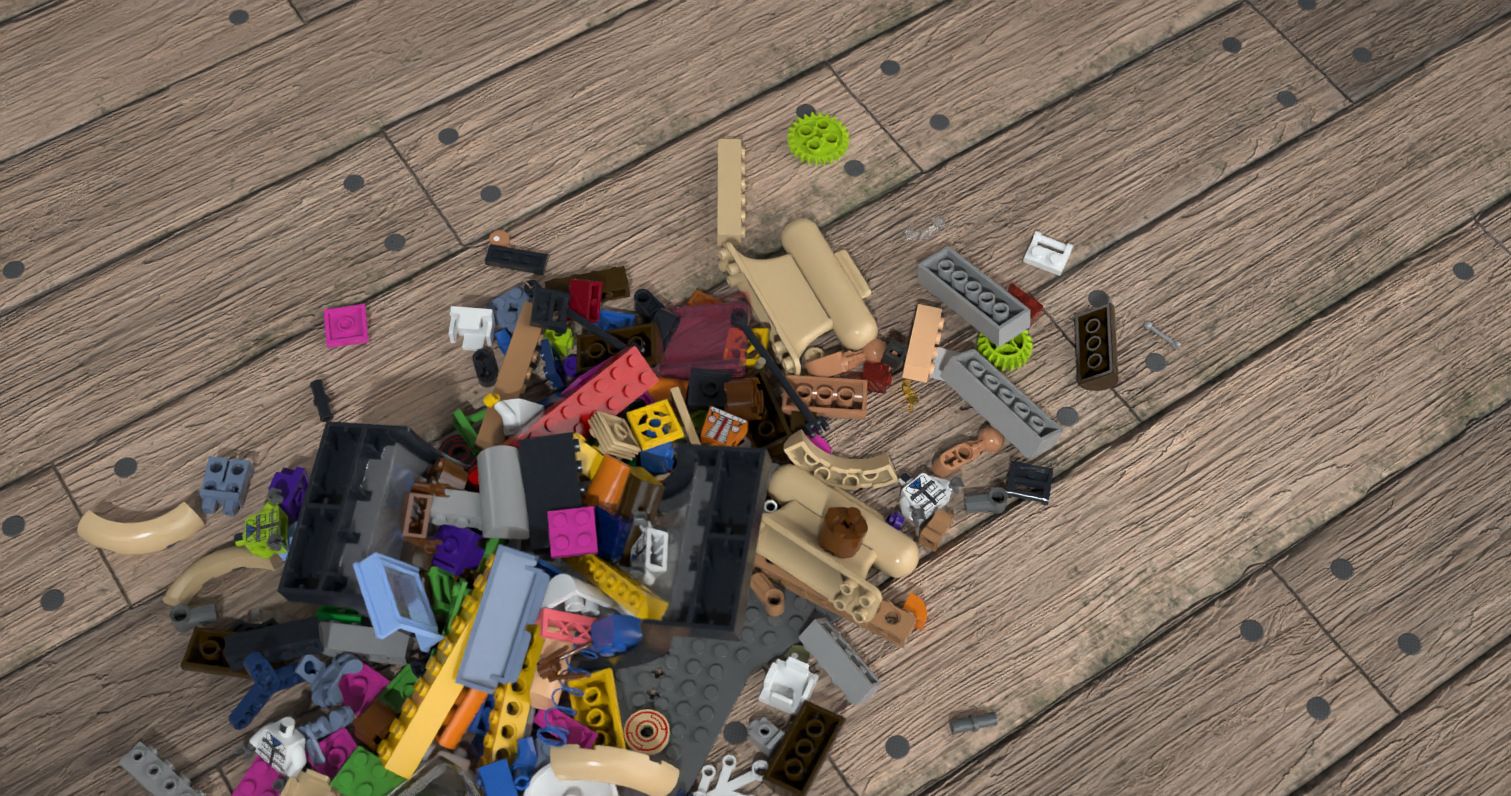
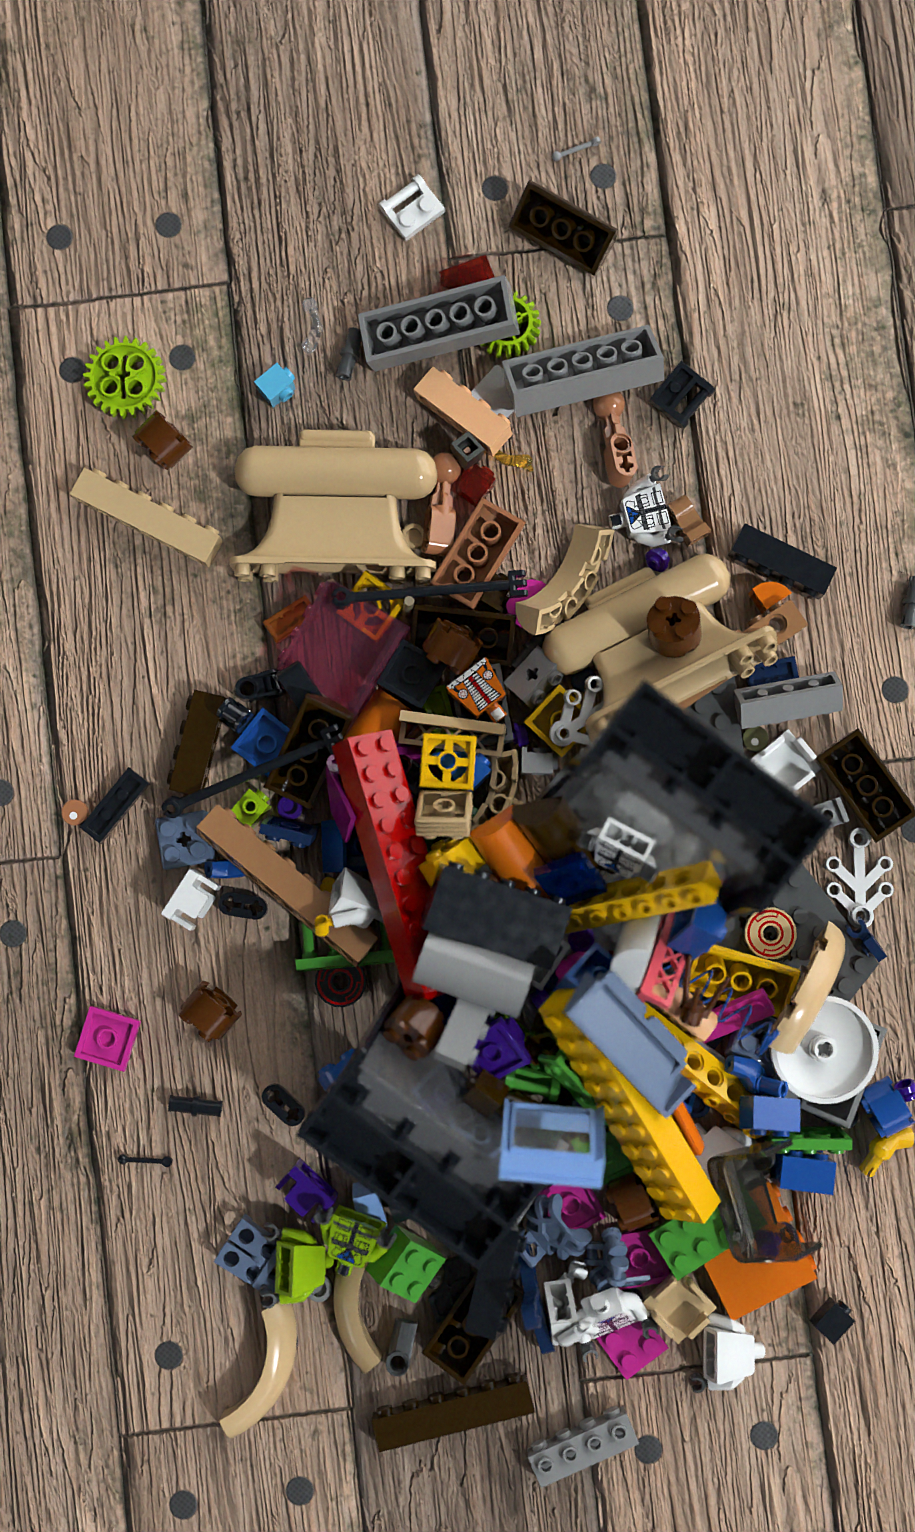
camera: 60 degrees left, 25 degrees up
(156, 676) = (452, 1412): none -> dark brown brick
(217, 540) = (322, 1292): none -> light grey tile
(229, 510) = (299, 1266): none -> lime torso
(258, 584) = (406, 1265): none -> bright green brick
(270, 708) = (562, 1308): none -> white torso
(271, 402) = (166, 1161): none -> black hinge
(395, 375) = (210, 1011): none -> reddish brown brick
(416, 513) = (455, 1079): reddish brown torso -> none
(543, 309) = (221, 811): black plate -> none
(572, 532) = (558, 918): dark pink plate -> none
(586, 298) = (222, 755): dark red brick -> none
(620, 298) = (235, 715): none -> black piece
(787, 175) = (162, 440): none -> reddish brown brick
(857, 641) = (781, 670): none -> dark blue plate
(869, 225) = (276, 385): none -> medium azure brick
(914, 260) = (349, 354): none -> dark grey pin
(946, 610) = (781, 561): none -> black brick
(984, 501) = (681, 454): dark grey piece -> none

